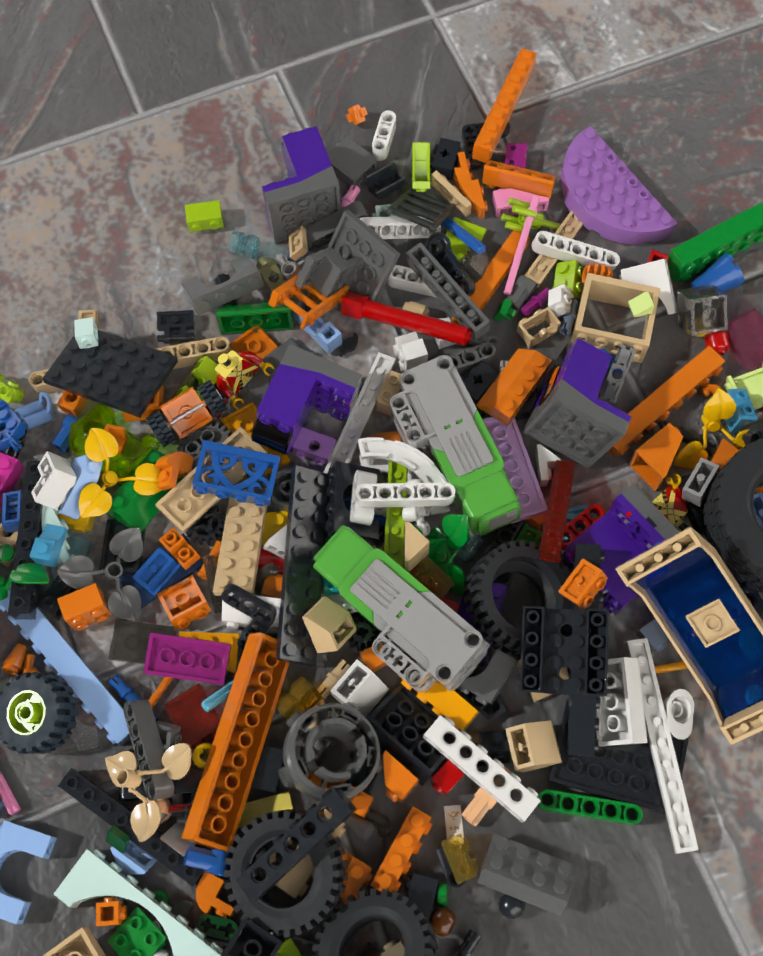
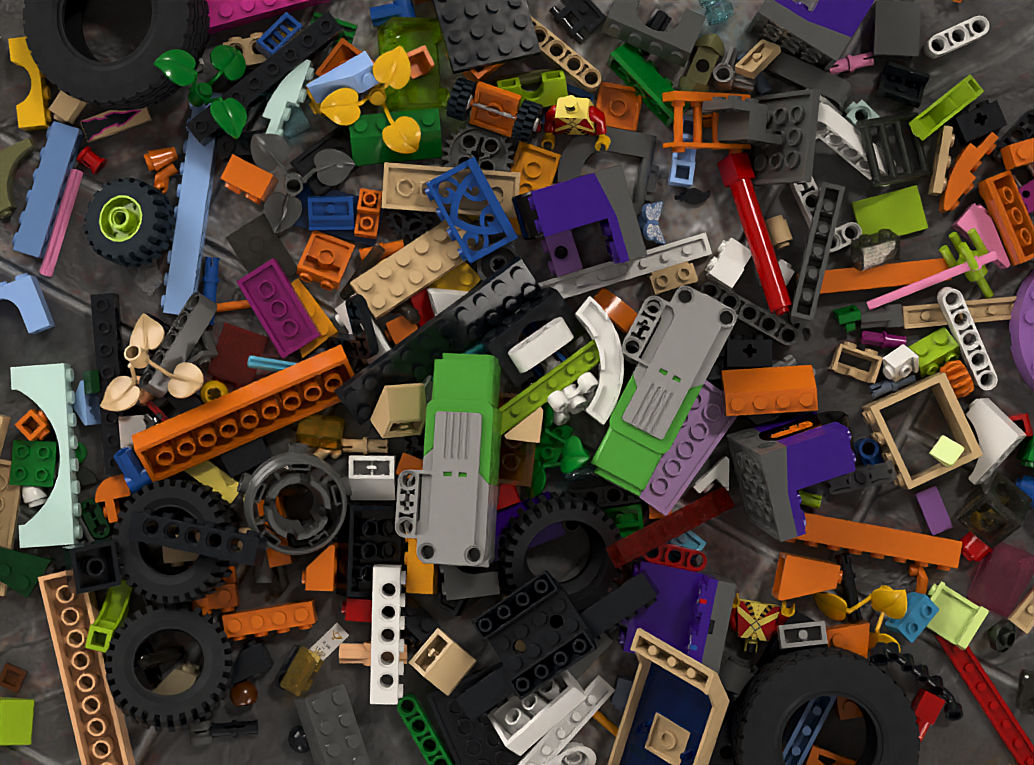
camera: 45 degrees right, 20 degrees up
(49, 545) = (270, 105): dark azure arch -> none
(54, 482) = (330, 57): white brick -> none
(173, 467) = (431, 143): orange brick -> none
(413, 489) = (575, 393): white beam -> none
(442, 894) = (265, 677): green tile -> none
(448, 260) = (851, 227): black beam -> none
(464, 236) = (895, 217): blue axle -> none
(583, 584) = (607, 607): orange bracket -> none
(673, 352) = (933, 510): none -> medium lavender tile

